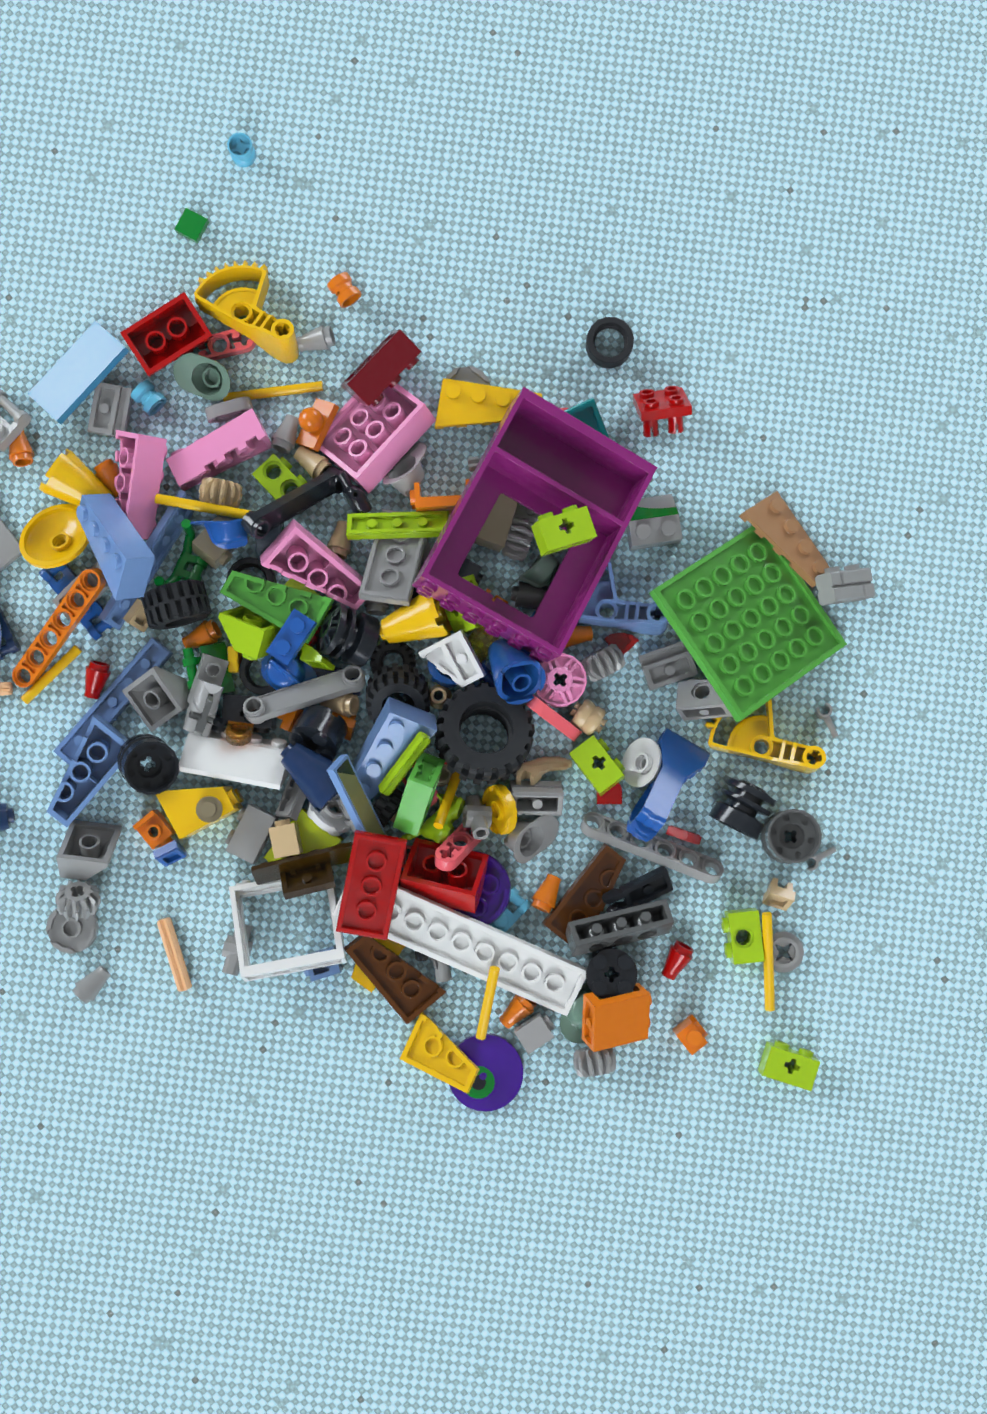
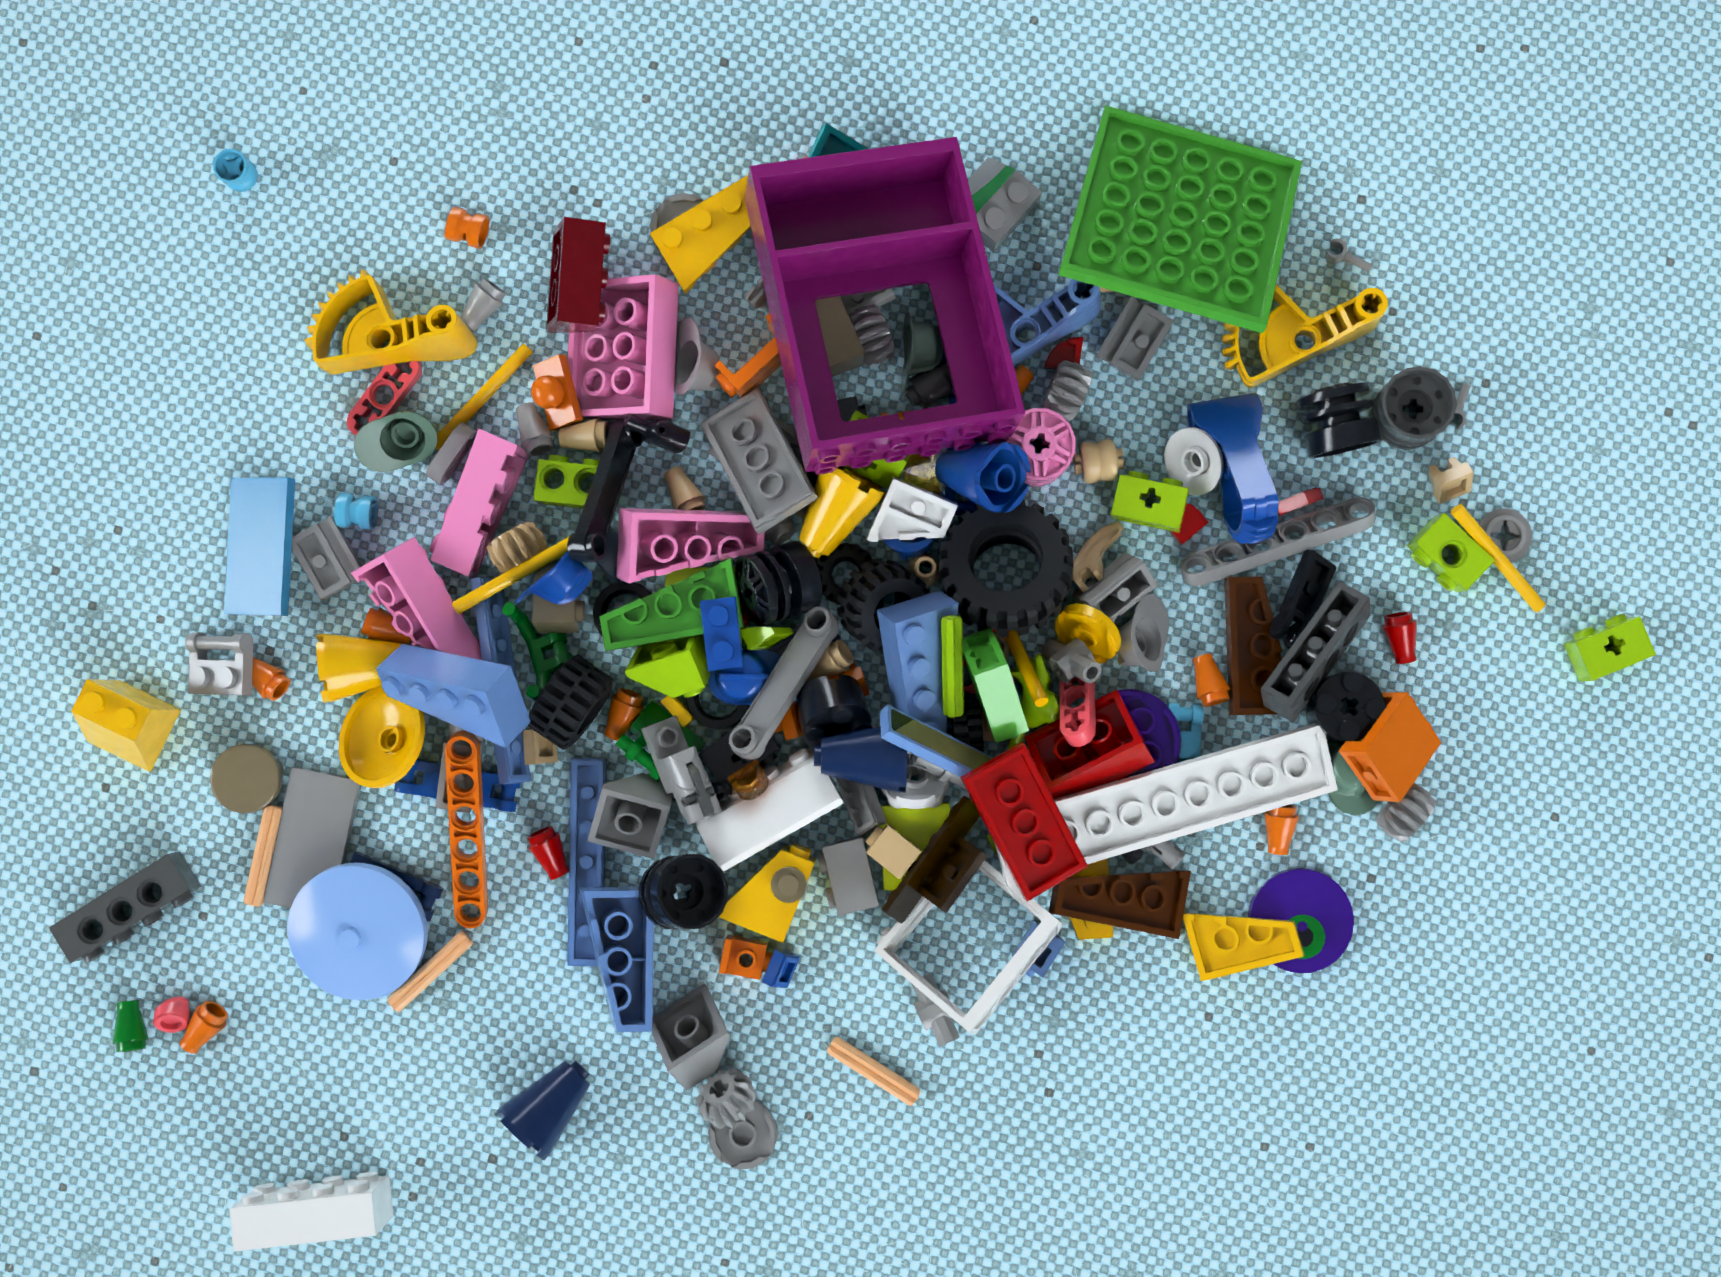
camera: 30 degrees left, 0 degrees up
(51, 674) = (497, 887): yellow bar -> none
(90, 985) = (814, 1177): light grey cone -> none
(166, 334) = (321, 427): red slope -> none
(191, 225) = (248, 294): green tile -> none
(395, 525) = (731, 426): lime tile -> none
(487, 1002) = (1244, 844): yellow bar -> none
(535, 1032) = (1318, 834): light grey brick -> none
(551, 539) = (932, 265): lime brick -> none
(554, 718) = (1065, 490): coral beam -> none
(609, 323) = (785, 27): black tyre -> none
(662, 404) = (901, 71): red plate -> none
(691, 1034) = (1481, 701): orange brick -> none
(693, 705) = (1198, 358): light grey brick -> none
(781, 528) = (1134, 97): medium nougat wing -> none
(845, 585) = (1250, 101): light grey brick -> none

